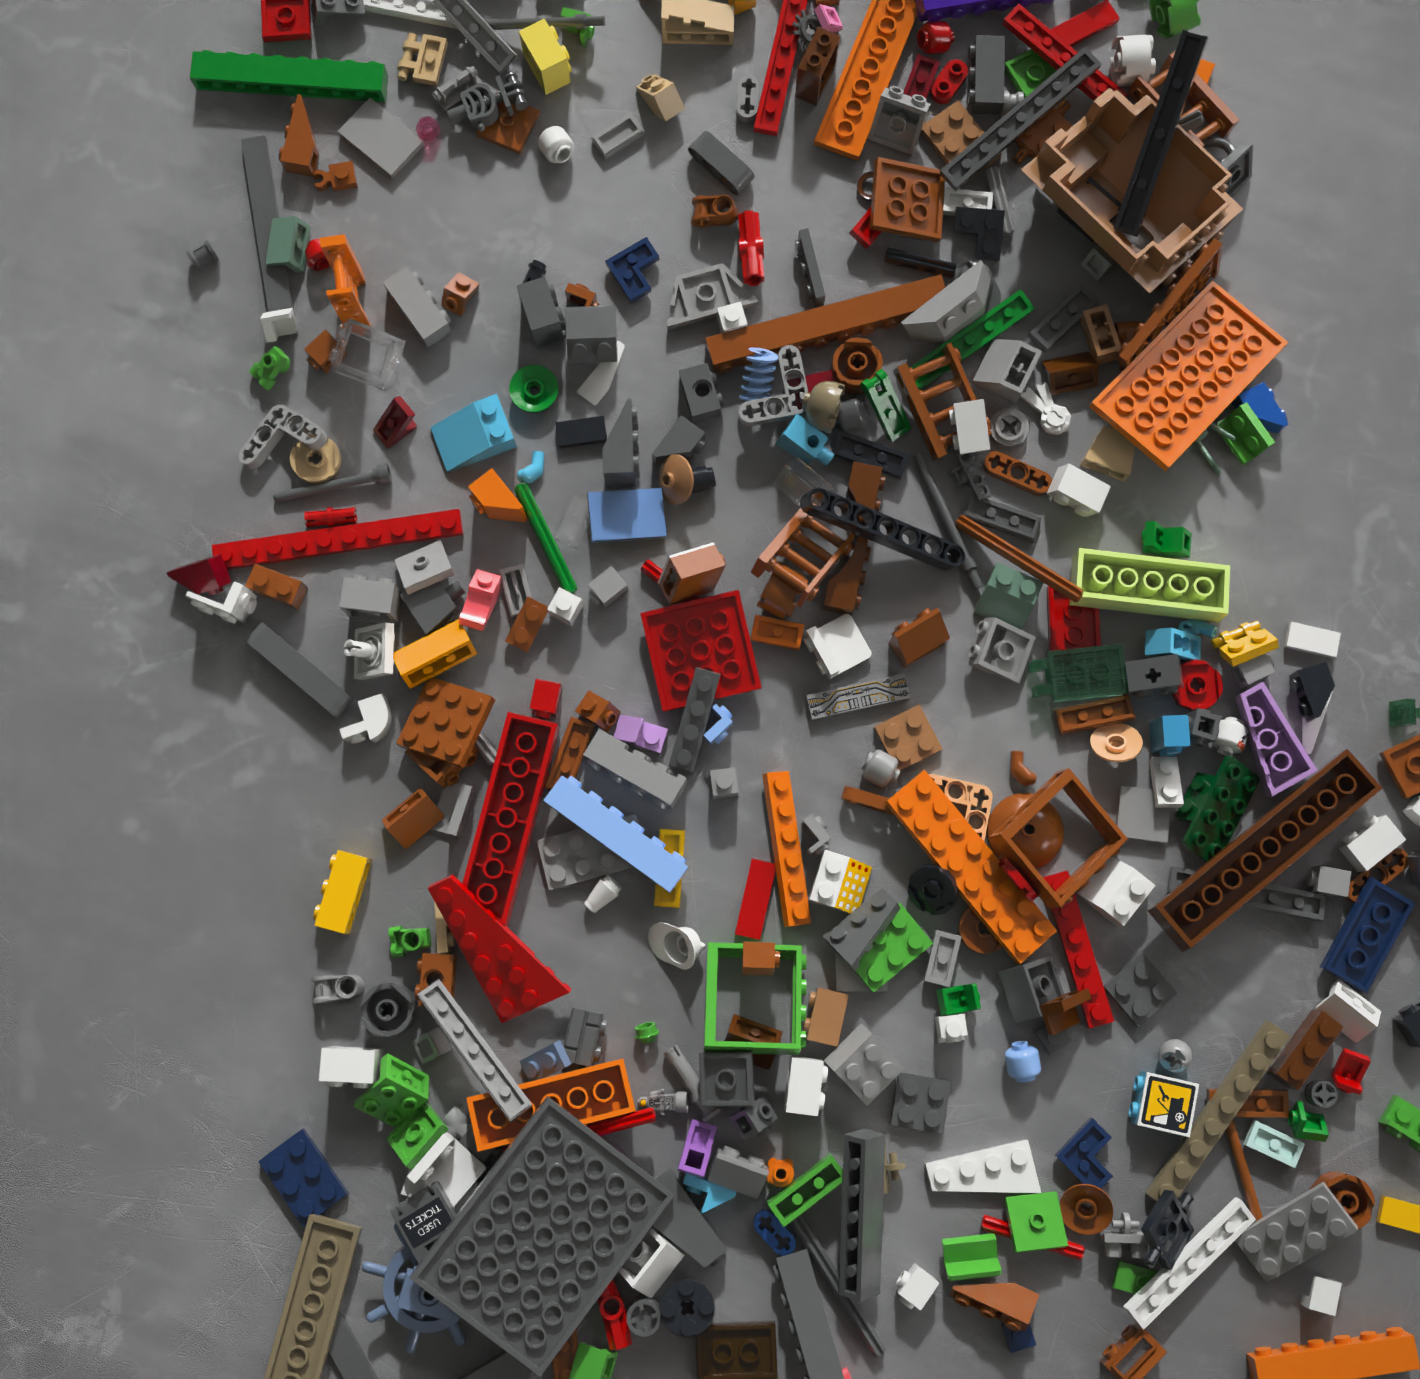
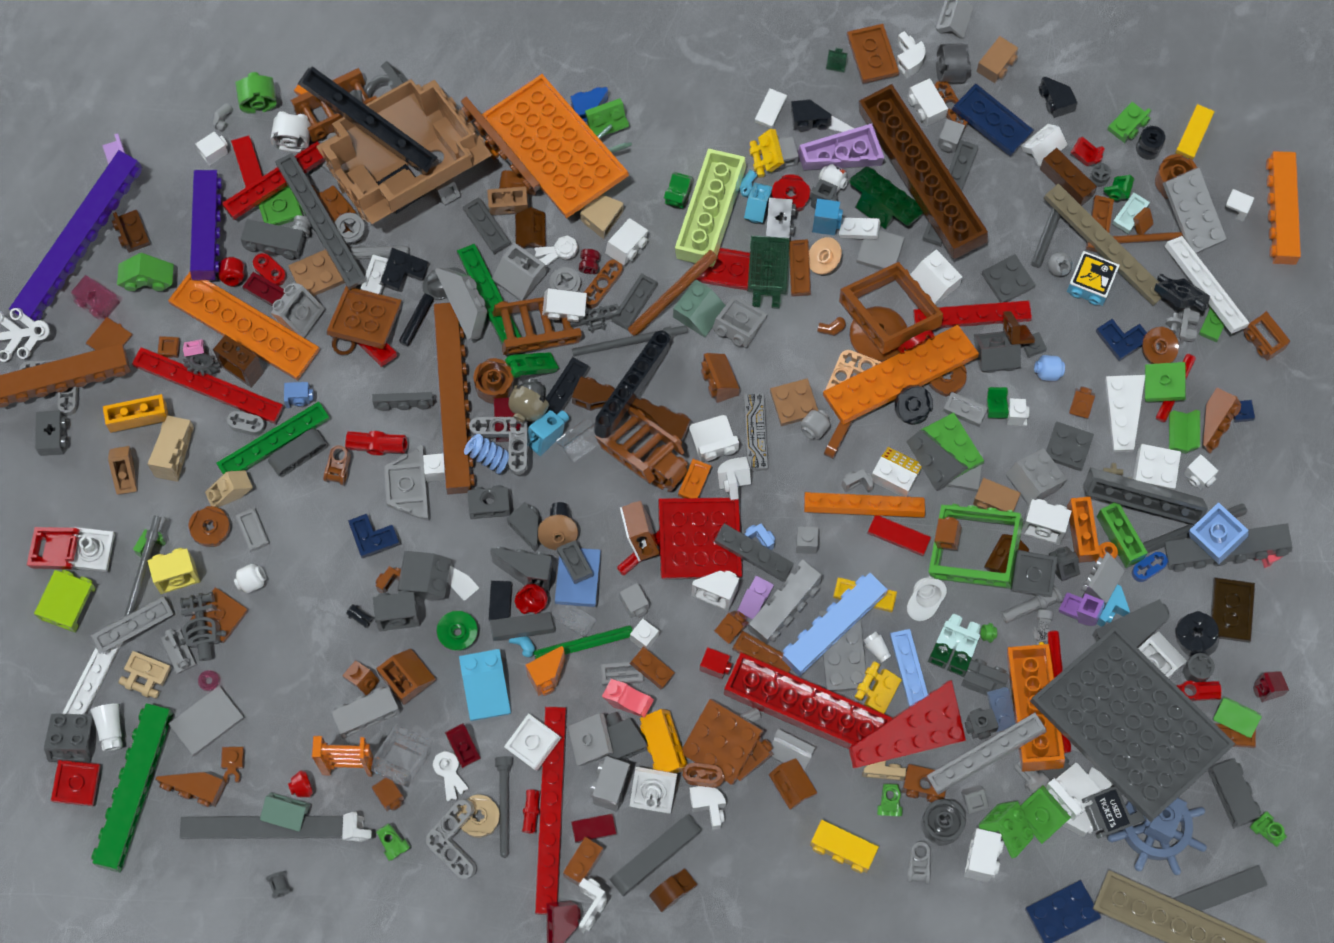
camera: 80 degrees left, 10 degrees down
(261, 698) = (672, 890): none -> reddish brown brick
(322, 593) = (594, 828): none -> dark red tile
(353, 33) = (108, 726): none -> white plant
(368, 412) = (446, 765): none -> white piece
(398, 708) = (704, 775): none -> dark orange plate
(412, 501) = (532, 742): none -> white tile
(467, 340) = (405, 675): none -> dark orange slope
(514, 1045) = (981, 723): none -> dark grey brick
(545, 908) = (882, 691): none -> yellow plate
(551, 461) = (521, 626): none -> dark grey tile
(582, 938) = (908, 666): none -> light blue plate
(586, 464) = (531, 599): none -> red hair
(611, 100) = (205, 516): none -> dark orange plate
(629, 990) = (959, 639): none -> hips
(636, 684) = (716, 589): none -> white slope
(640, 505) = (574, 562): none -> dark grey plate
(731, 133) = (274, 439): none -> green plate
(792, 676) = (733, 474): none -> white brick
(793, 146) = (297, 394): none -> medium blue brick
(804, 1136) = (1083, 529): none -> orange brick
(821, 1321) = (1218, 533): none -> light blue brick
(909, 1224) = (1157, 466): none -> white brick
(985, 1112) = (1082, 402): none -> dark orange bracket
(1018, 147) = (350, 219): none -> light grey gear
(1042, 450) = (589, 261): none -> dark red wheel
(1208, 1031) = (1045, 238): none -> dark grey axle
(1265, 1162) = (1143, 220): none -> dark orange tile
(1385, 1158) = (1150, 142): none -> black wheel

